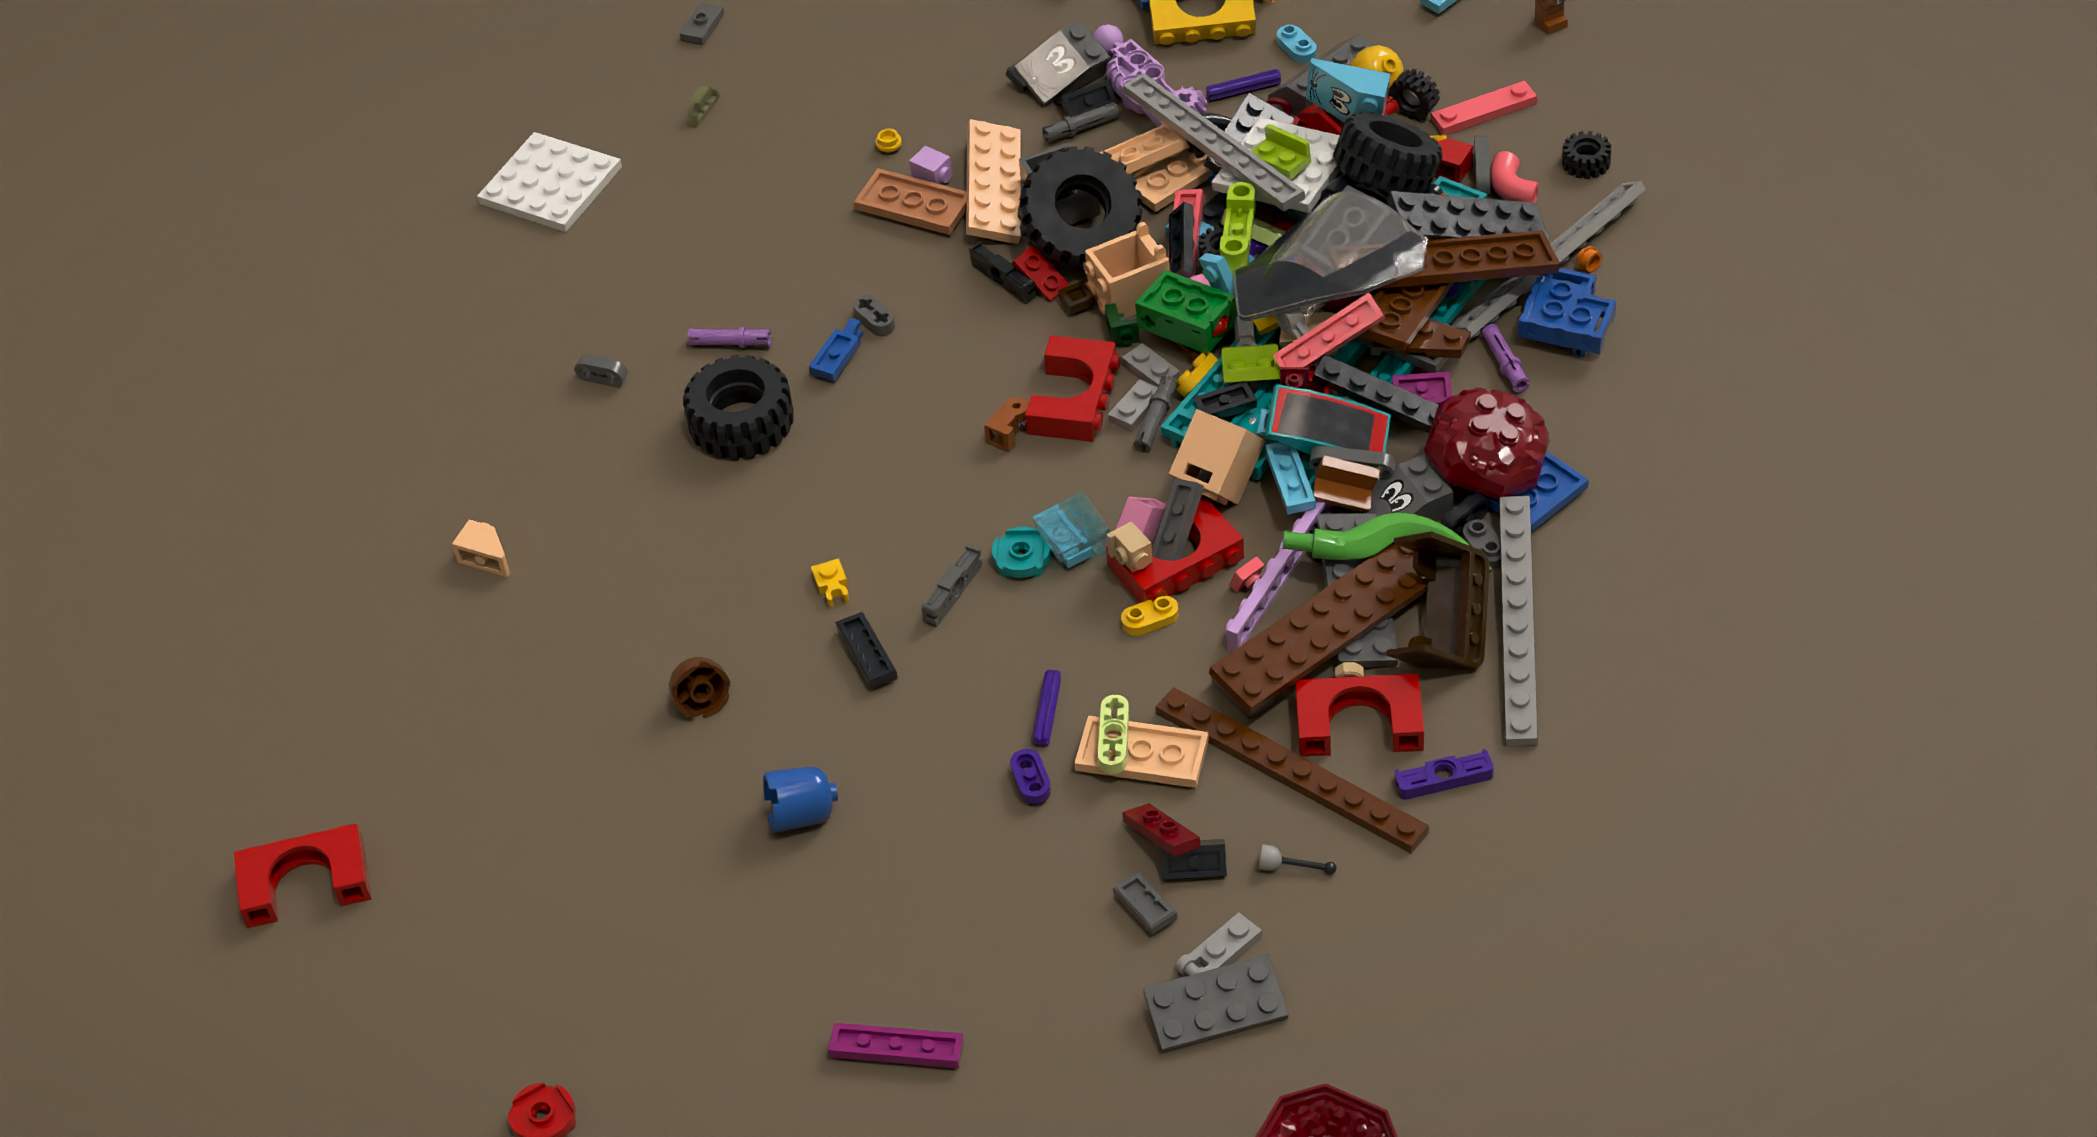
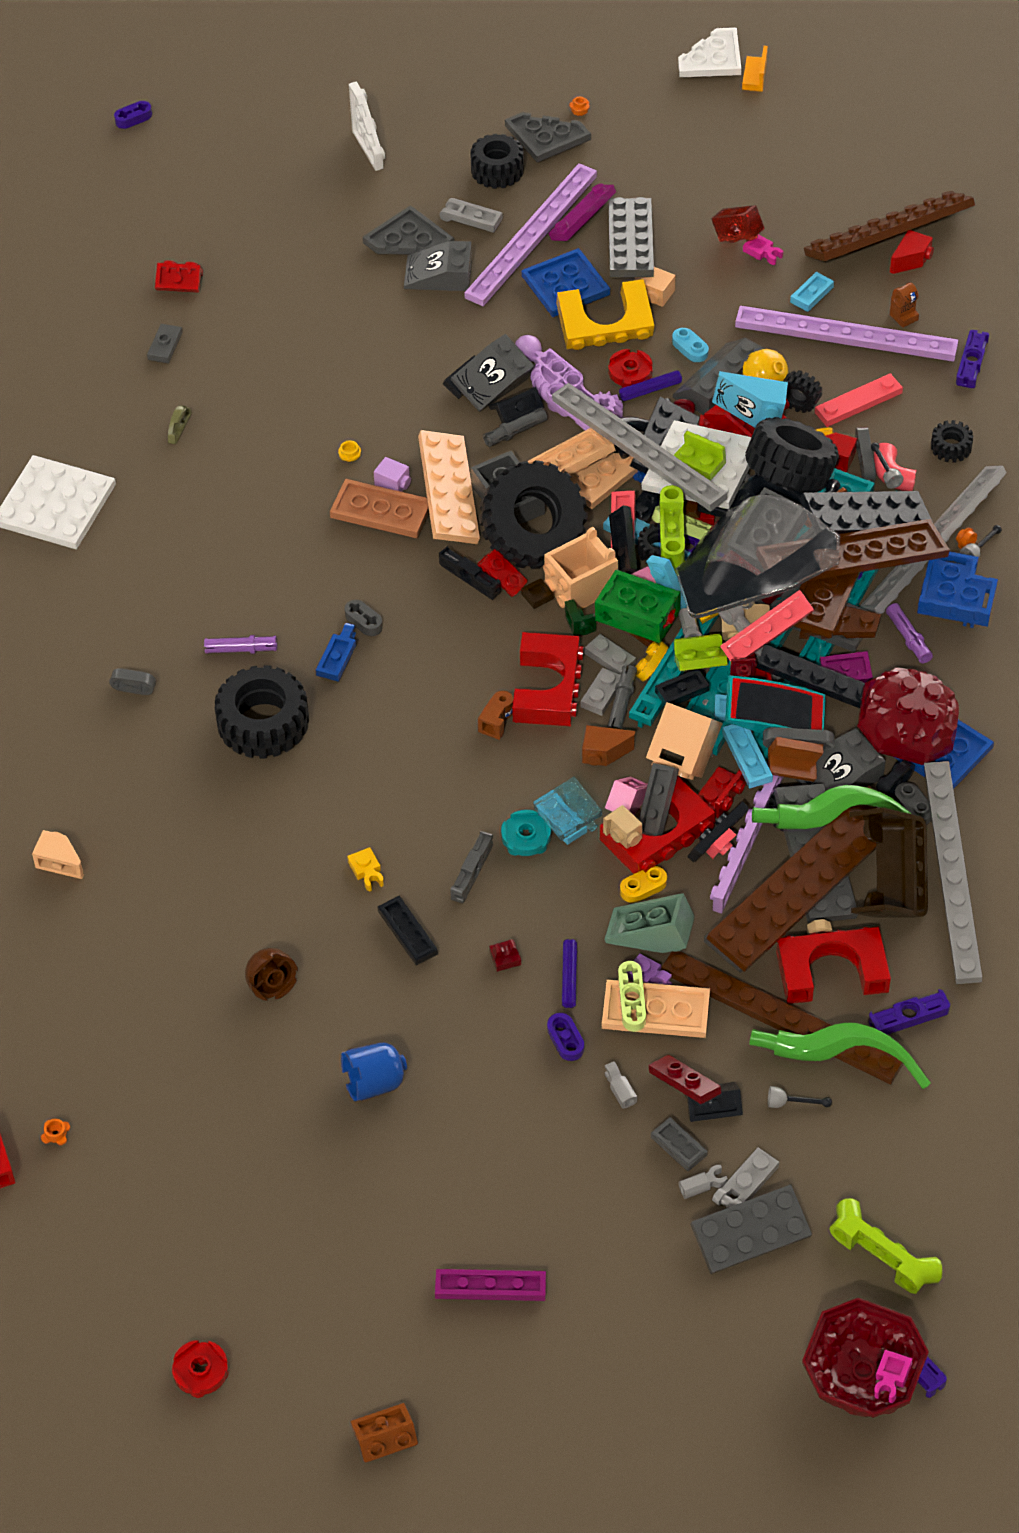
camera: 10 degrees left, 5 degrees up
(422, 839) = (55, 1125): none -> orange plate
(975, 683) = (505, 955): none -> dark red tile
(1086, 835) = (620, 1086): none -> light grey bar
(1129, 461) = (606, 745): none -> dark orange slope
(1142, 710) = (651, 971): none -> medium lavender plate
(1152, 658) = (652, 925): none -> sand green slope
(1166, 947) = (702, 1182): none -> light grey bar
(1233, 60) = (624, 358): none -> red plate
(1258, 518) = (721, 790): none -> red bracket
(1261, 549) = (722, 824): none -> black plate
(1344, 797) = (832, 1041): none -> bright green animal
(1399, 1063) = (910, 1271): none -> lime plate
(1480, 37) = (846, 333): none -> lavender plate
(1506, 182) = (892, 476): none -> light grey hinge
(1595, 269) = (973, 549): none -> hinge
(1618, 80) = (969, 369): none -> dark purple piece

